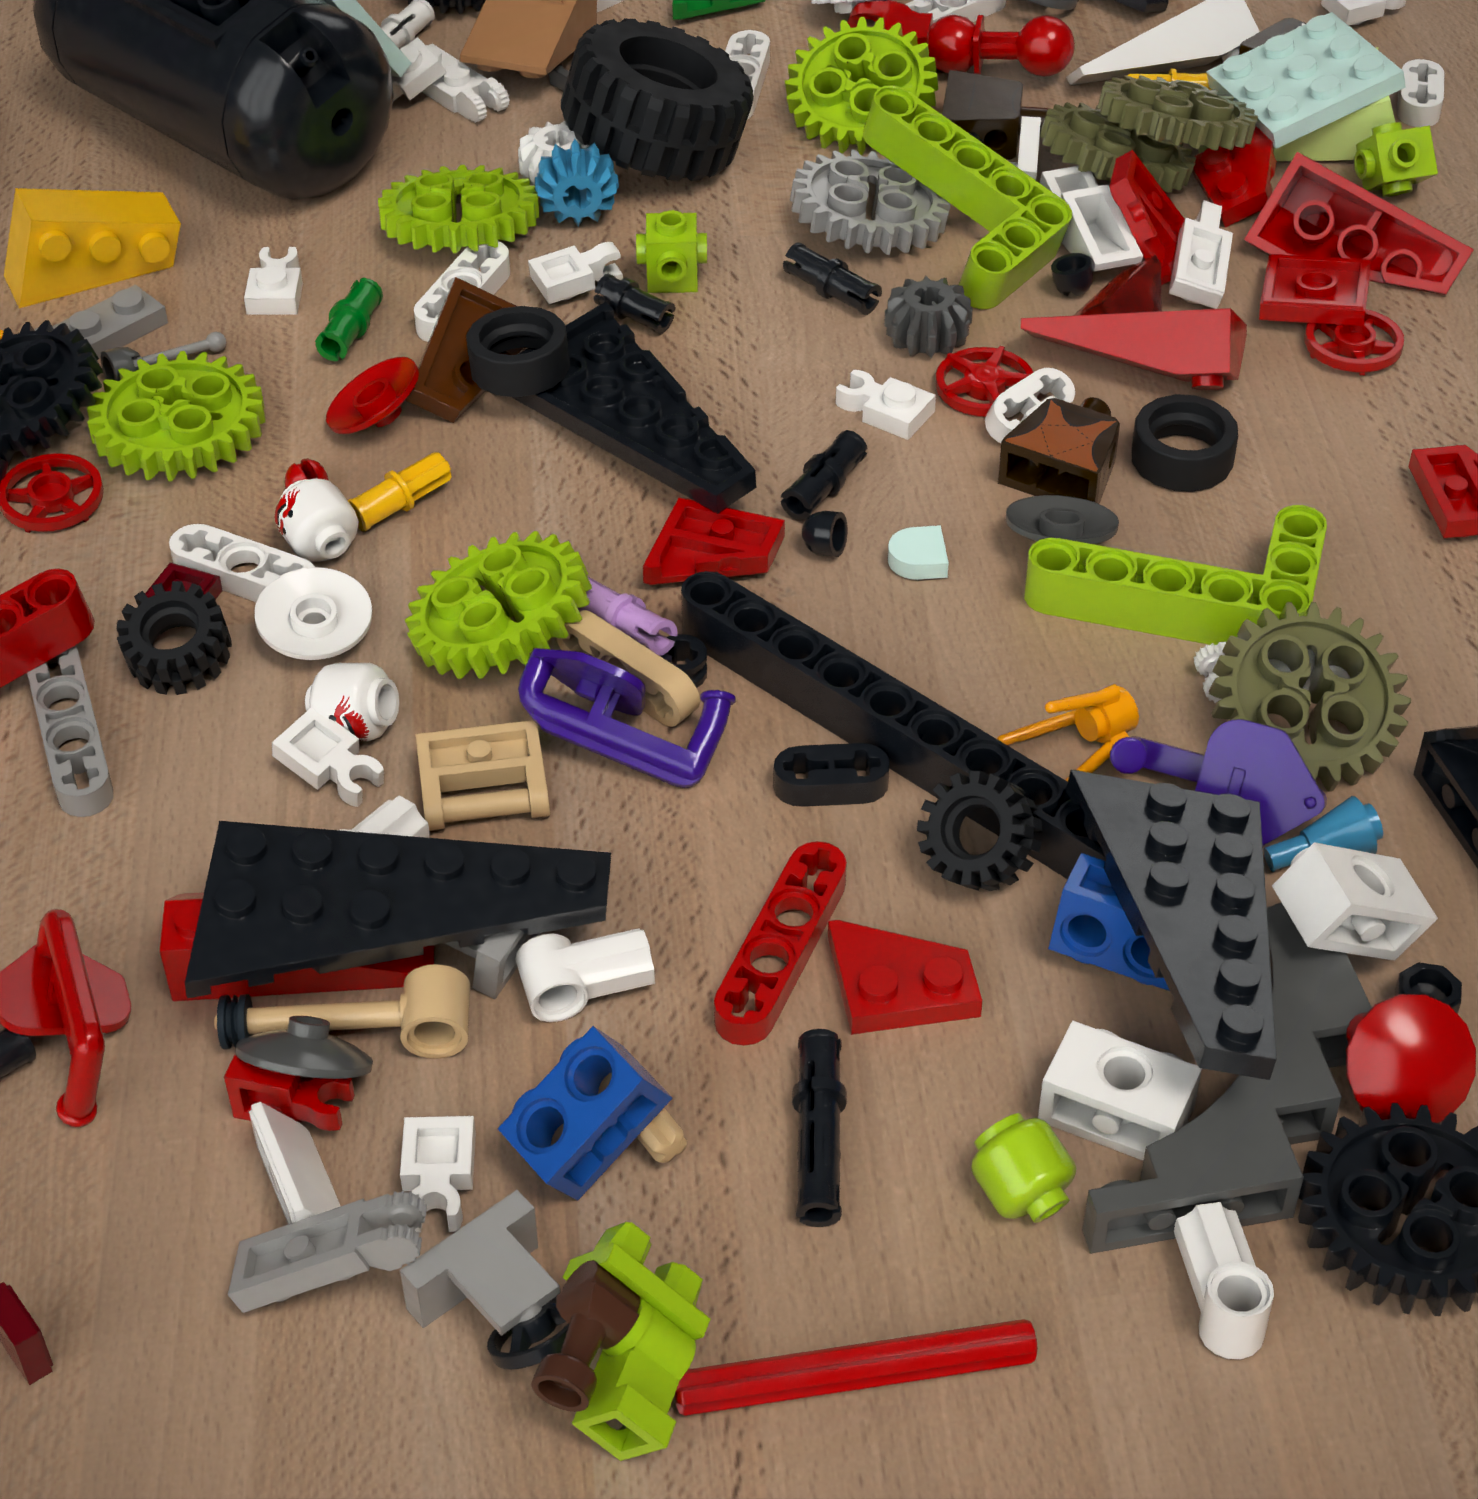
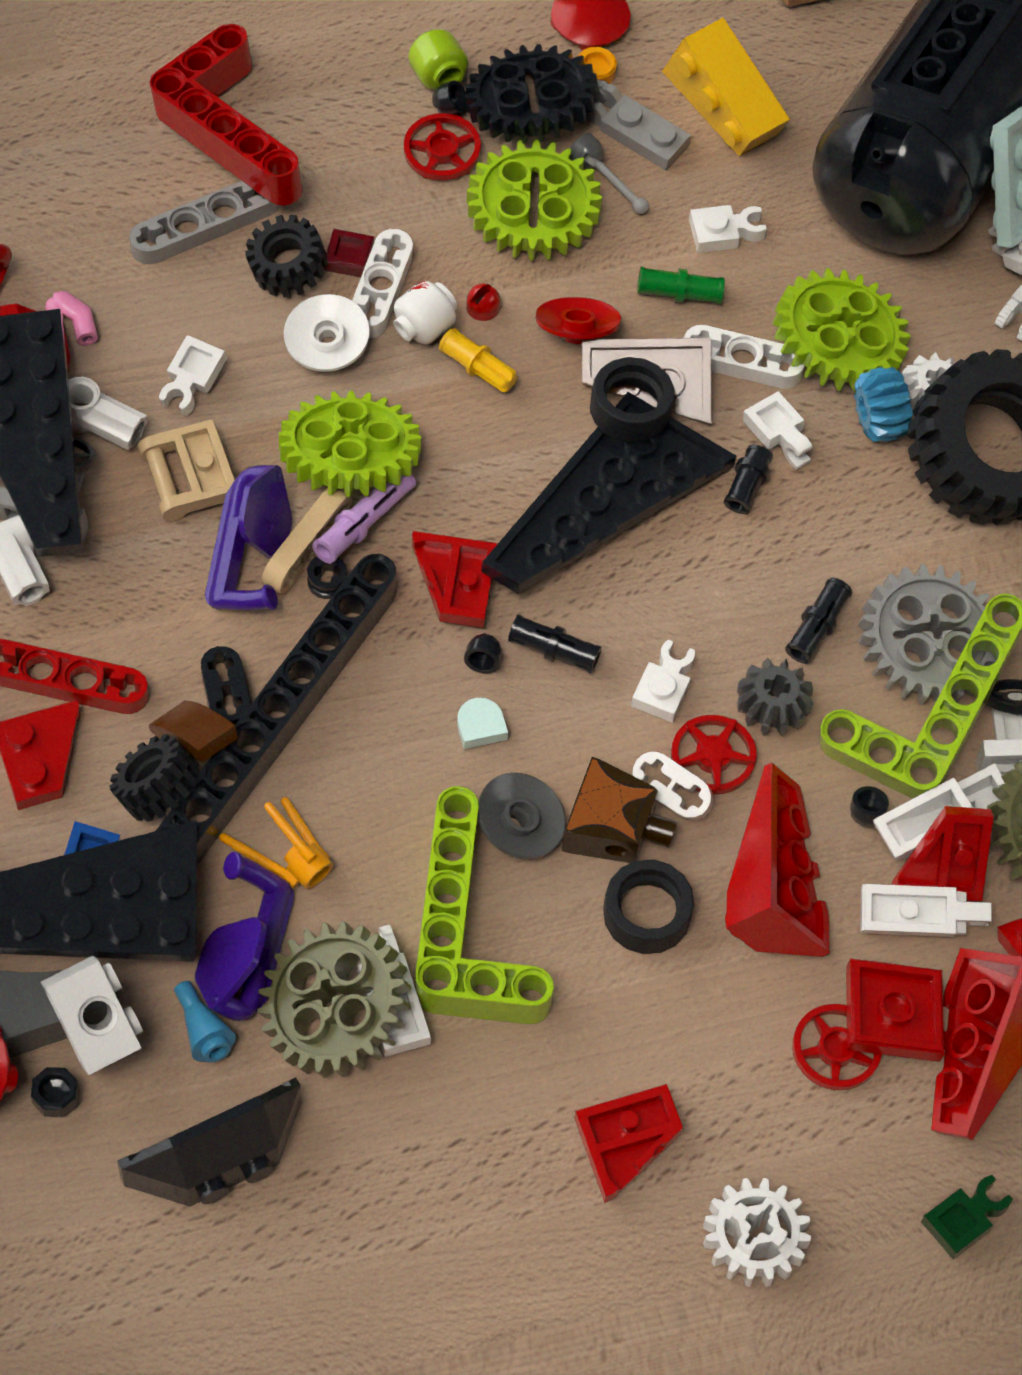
camera: 75 degrees right, 15 degrees up
(177, 870) = (78, 313): none -> bright pink arm
(355, 697) = (241, 375): white head -> none
(671, 251) = (814, 492): lime brick -> none
(892, 799) = (196, 728): none -> reddish brown slope
(1130, 291) = (843, 854): clear red slope -> none

